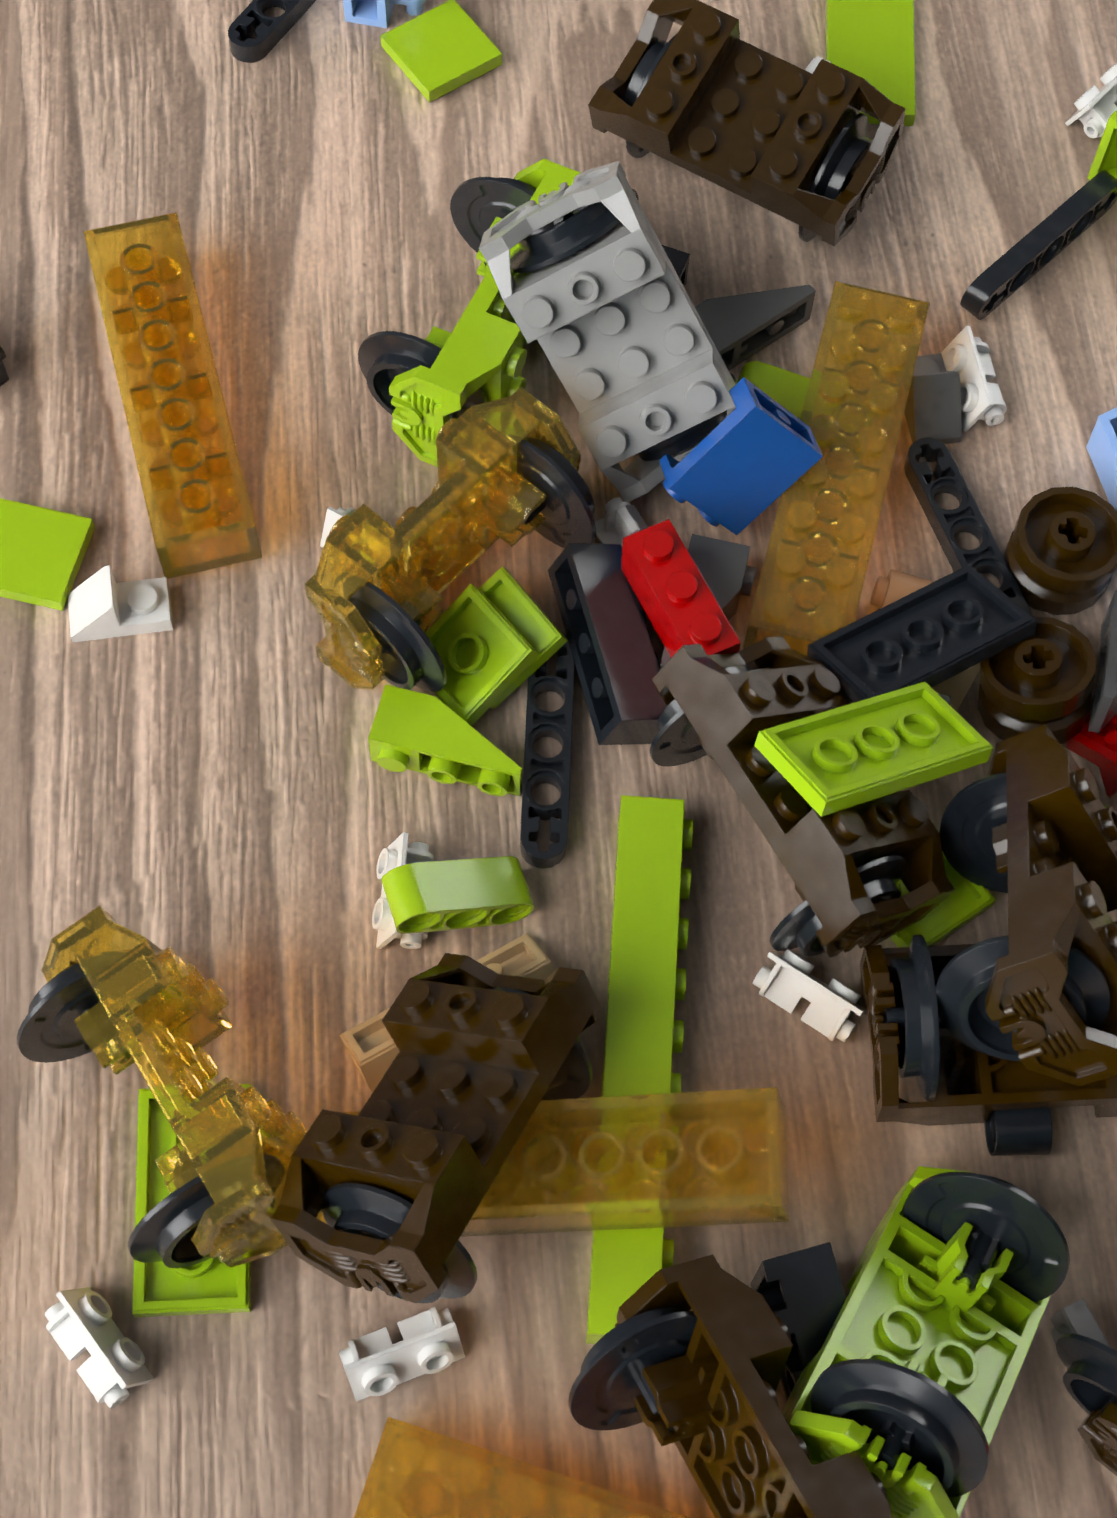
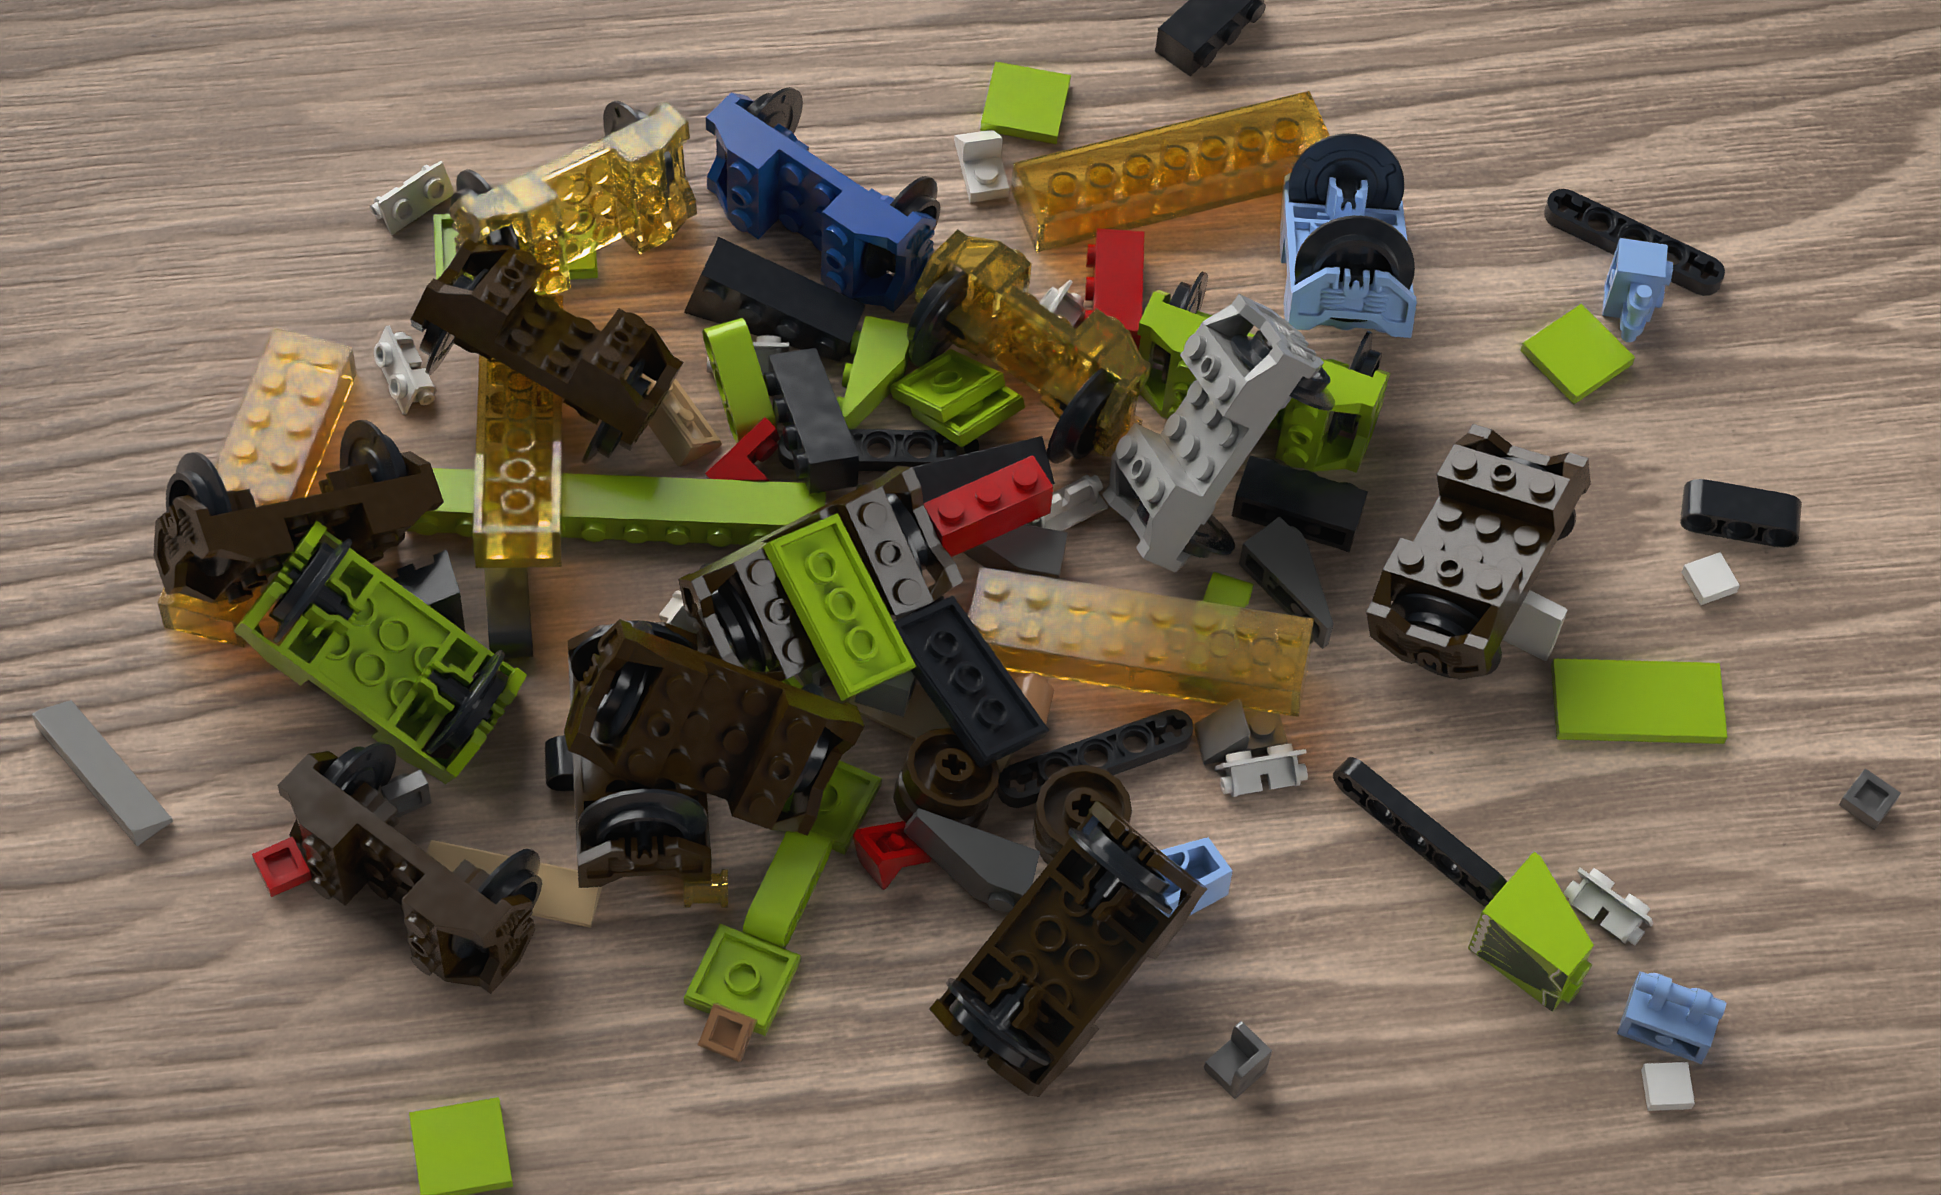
camera: 85 degrees right, 5 degrees down
(253, 728) = (772, 176): none -> blue piece
(331, 857) = (773, 301): none -> black wedge
(332, 207) = (1347, 239): none -> piece
(333, 468) = (1117, 276): none -> red brick
(529, 804) = (811, 421): none -> black brick
(580, 906) = (740, 460): none -> red slope
(743, 461) = (1123, 545): blue panel -> none
(819, 1203) = (508, 611): none -> black beam

